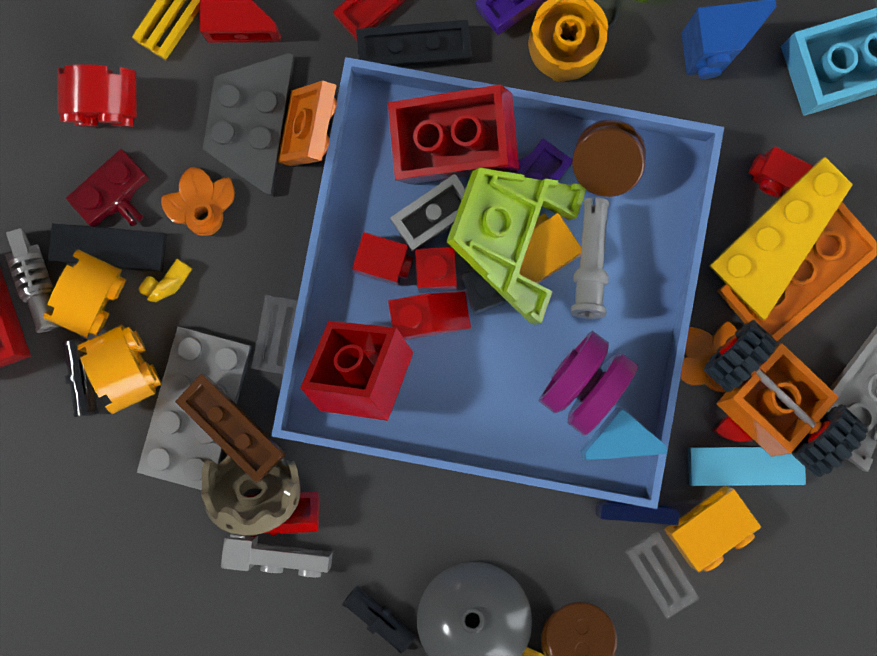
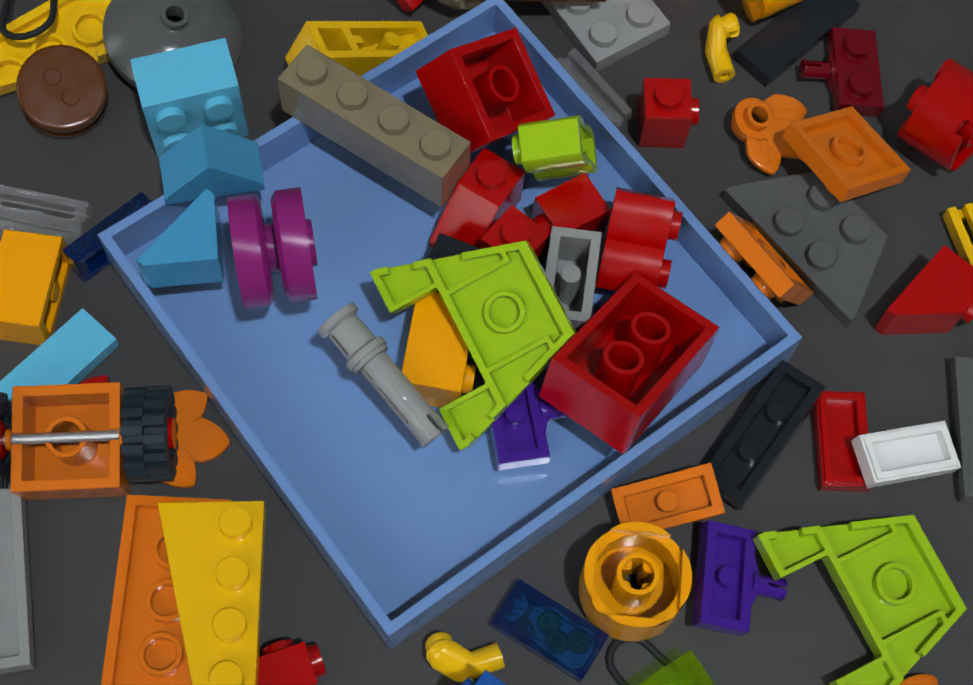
camera: 125 degrees right, 20 degrees down
(182, 139) = (846, 153): none -> orange plate
(250, 270) = (666, 112): none -> red brick
(358, 292) = (555, 148): none -> lime brick
(367, 200) = (638, 239): none -> red brick
(380, 492) = (358, 43): none -> yellow slope
(446, 412) = (374, 125): none -> dark tan brick
(501, 58) = (671, 498): none -> orange plate
(517, 555) = (189, 89): none -> medium azure brick
(559, 482) = (210, 161): none -> dark azure slope
(609, 158) = (468, 491): reddish brown head -> none
(626, 67) = (549, 630): none -> clear blue tile
(687, 94) = (458, 662): none -> yellow arm

